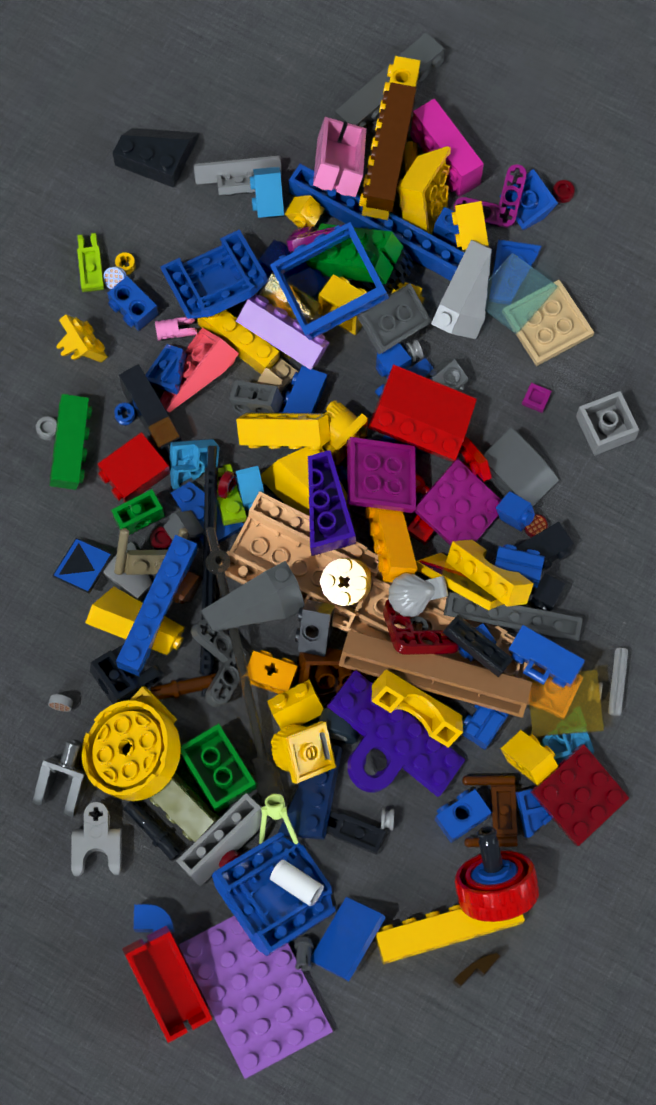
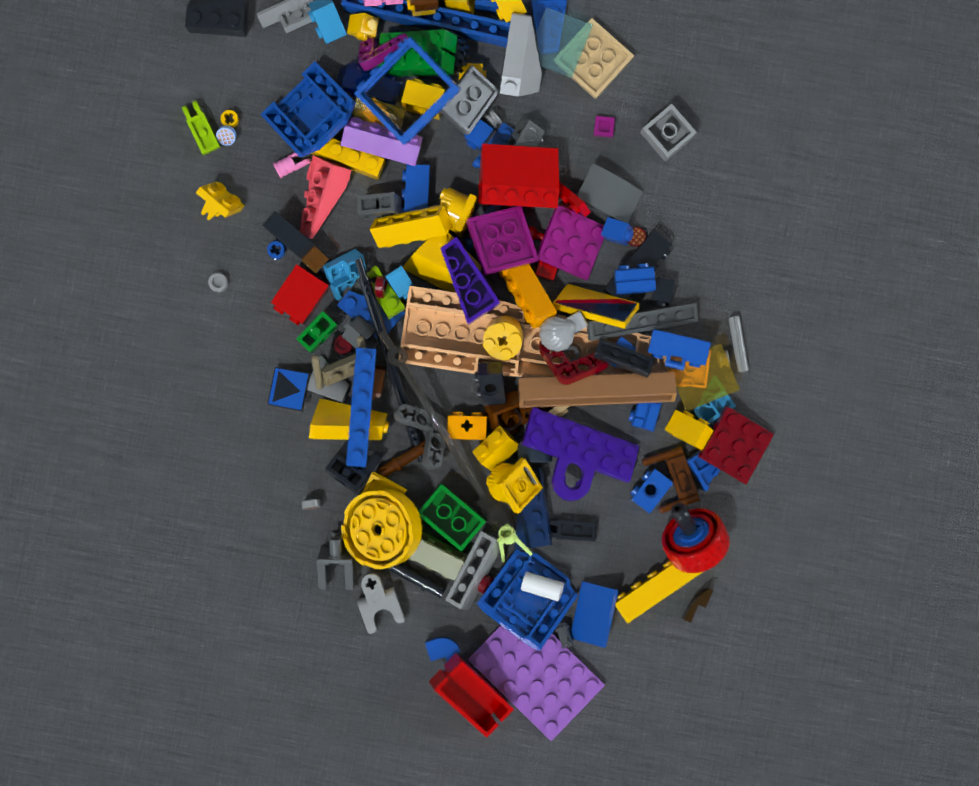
camera: 15 degrees left, 15 degrees up
(69, 442) = (241, 290): green brick -> none
(136, 301) = (251, 150): blue brick -> none
(168, 369) = (298, 202): blue wing -> none
(263, 599) = (444, 375): dark grey wedge -> none
(279, 375) = (388, 179): tan slope -> none
(387, 819) = (594, 512): light grey bush -> none
(438, 719) = (611, 423): yellow arch -> none
(504, 585) = (631, 303): yellow arch -> none

